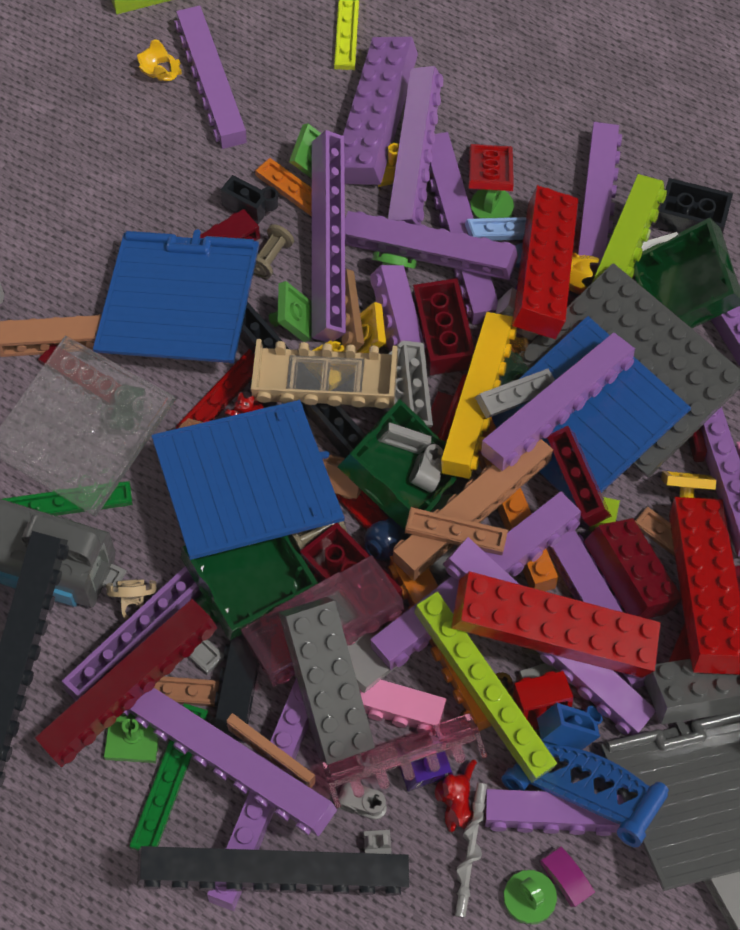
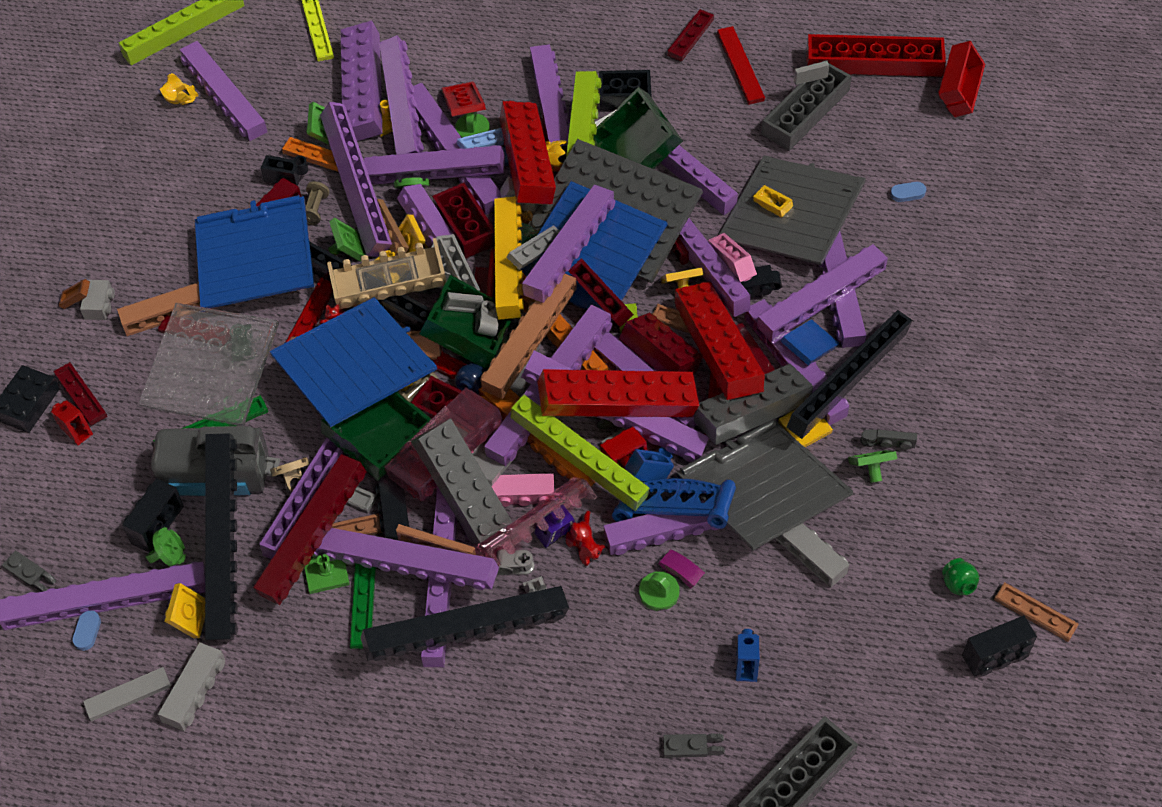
camera: 15 degrees left, 5 degrees down
(455, 530) = (521, 352): nougat tile -> none
(473, 851) = (608, 572): light grey piece -> none

